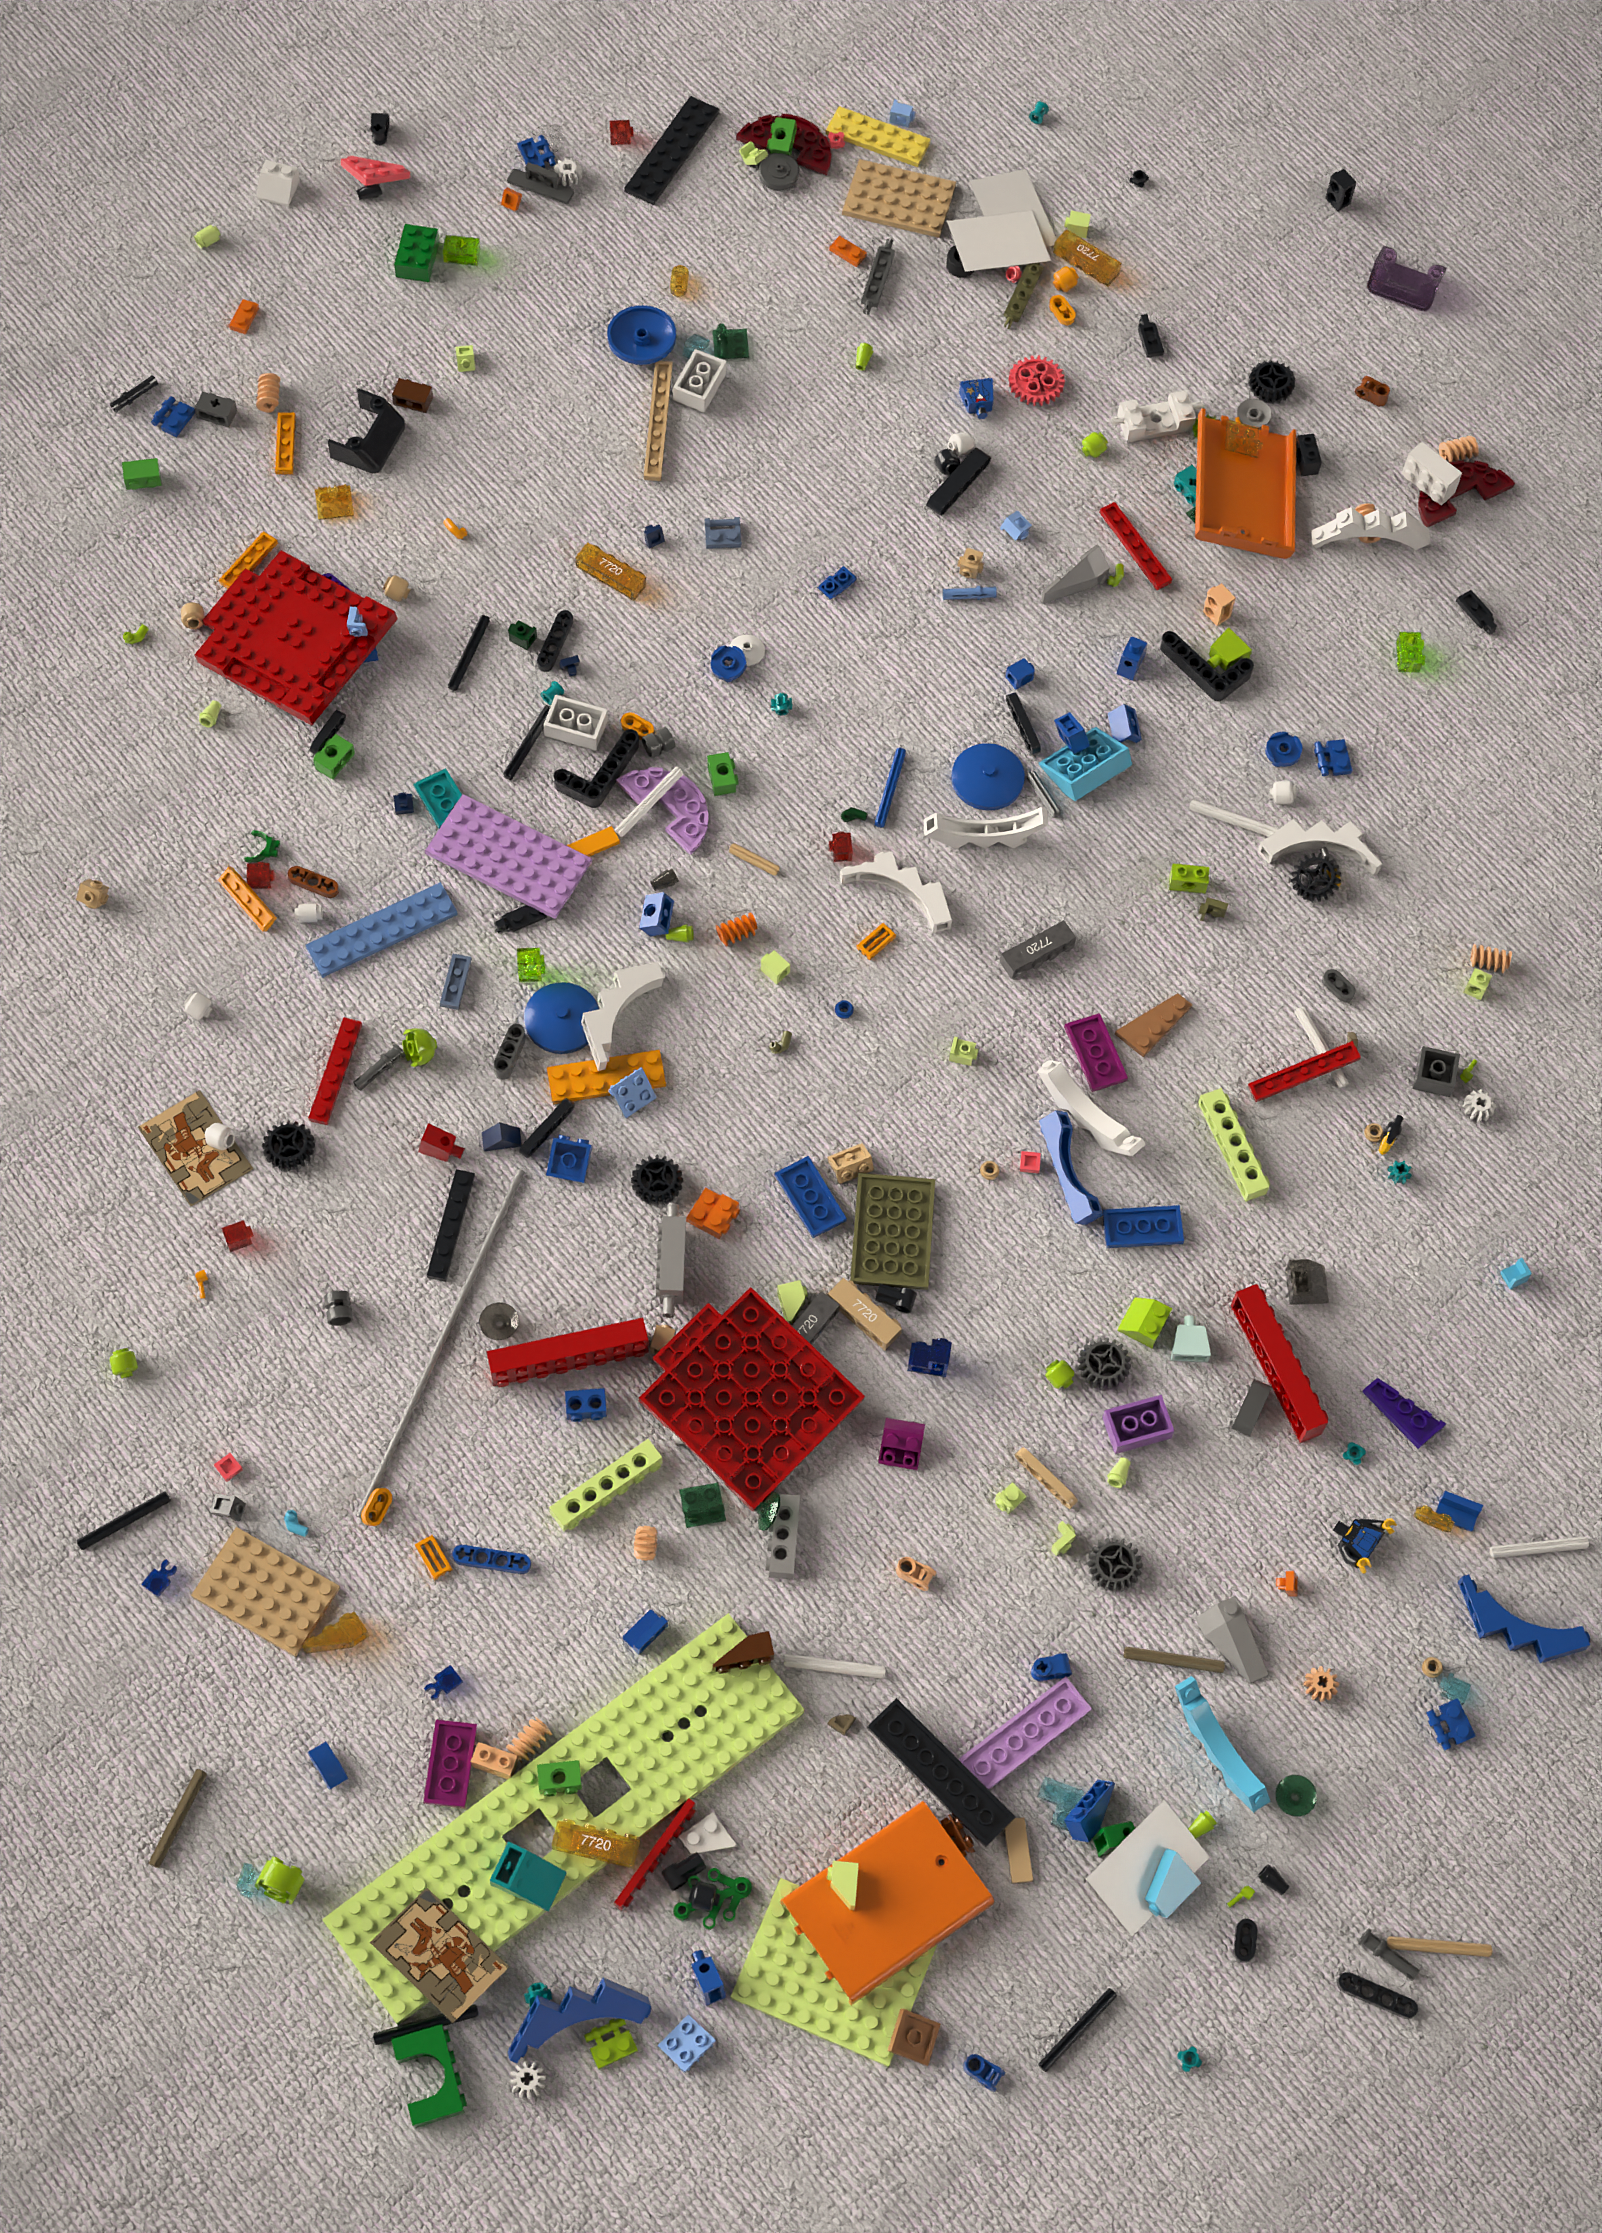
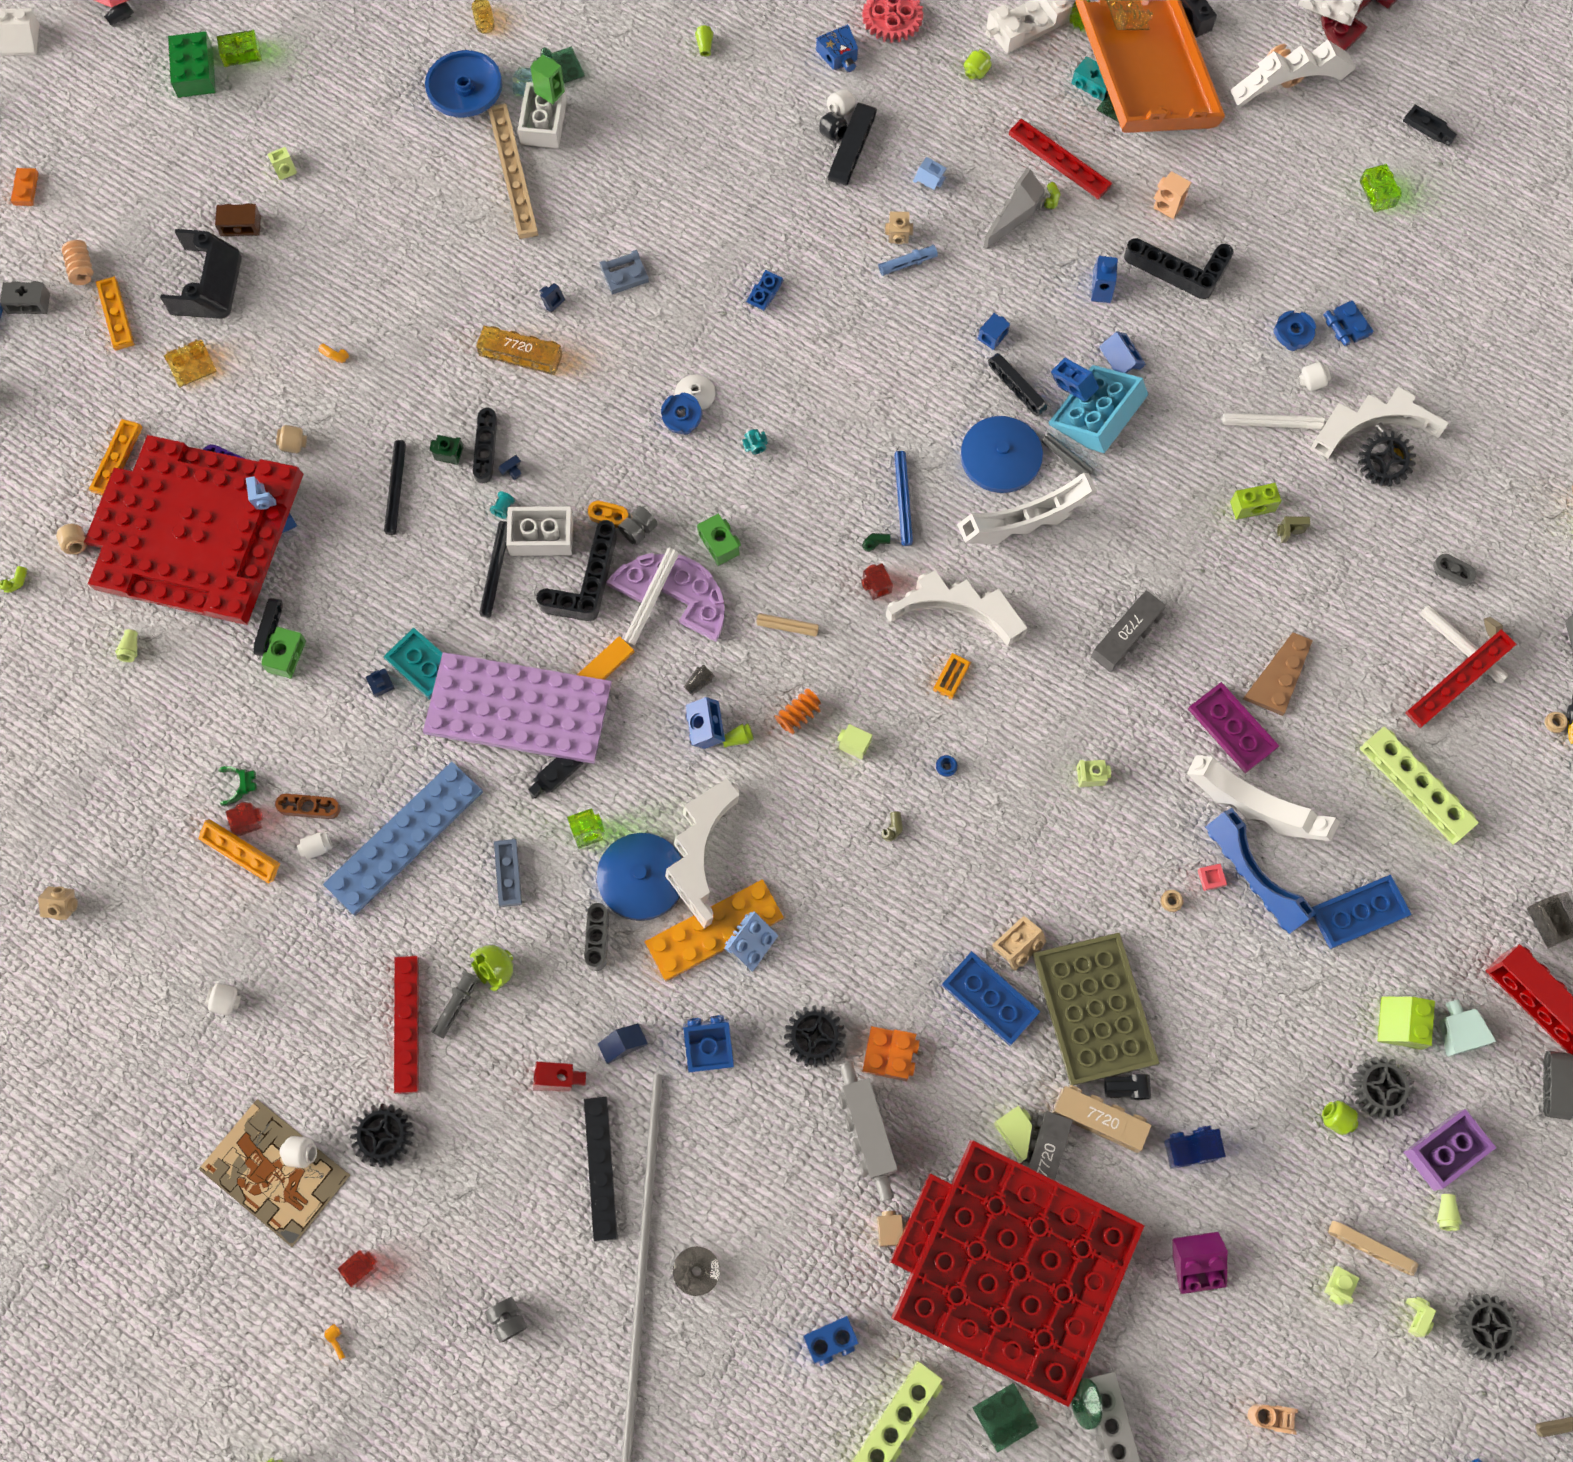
camera: 15 degrees left, 5 degrees up
(547, 1127) = (669, 1014): black beam -> none
(568, 1352) = (789, 1285): red brick -> none
(712, 352) = (547, 78): none -> bright green brick
(1228, 650) = (1199, 241): lime torso -> none

